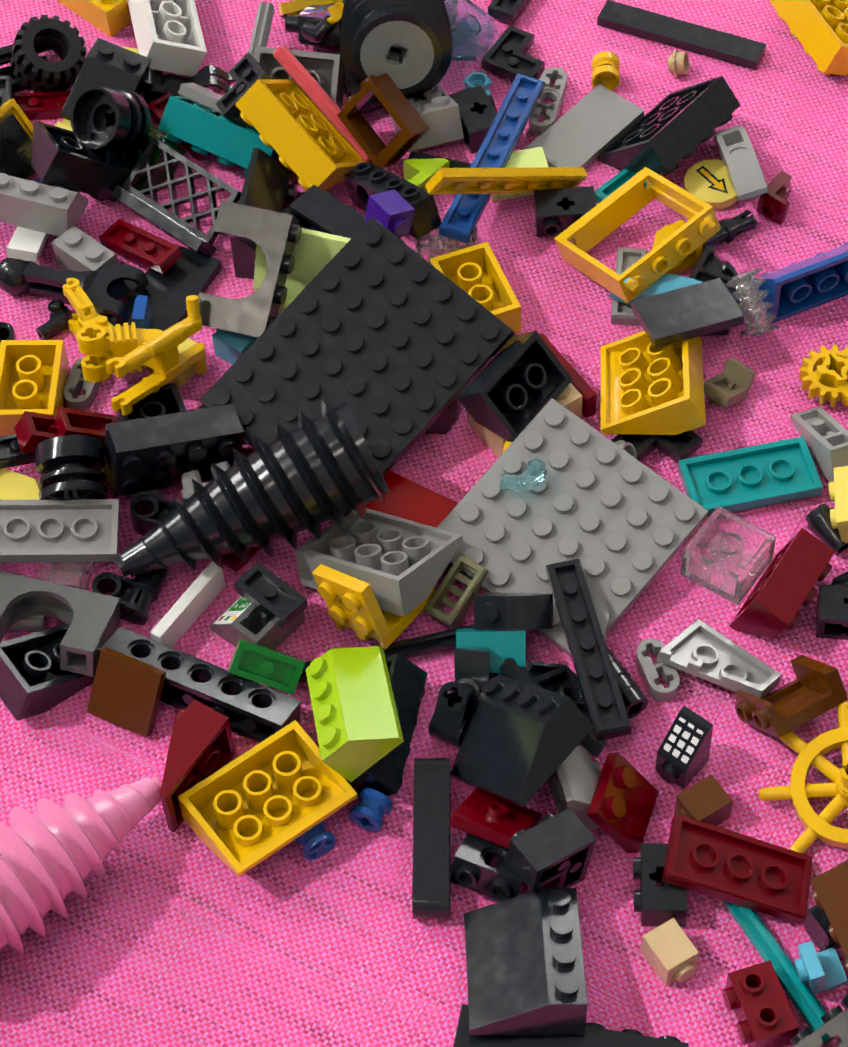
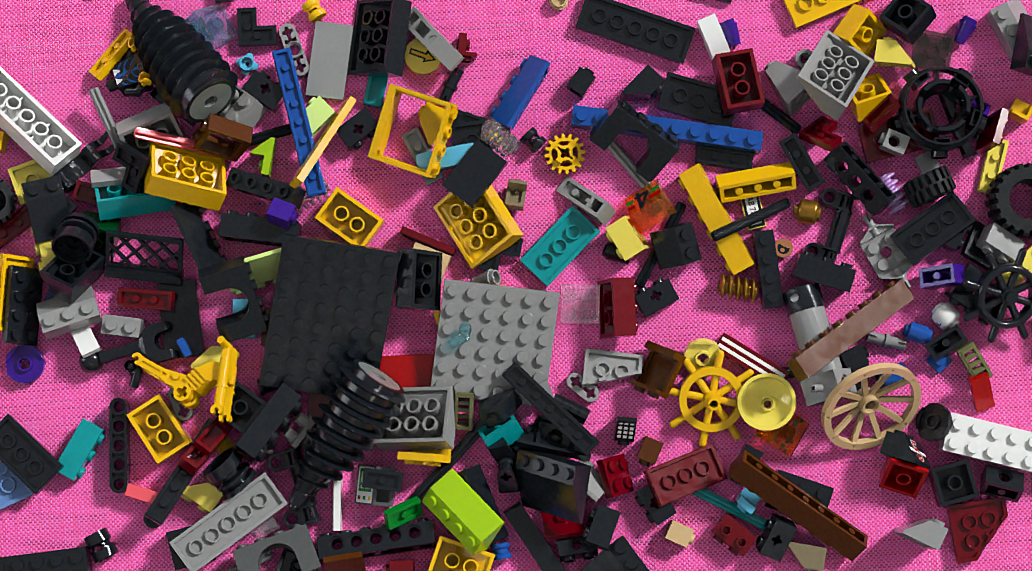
camera: 40 degrees left, 30 degrees up
(799, 337) = (533, 140): none -> black wheel

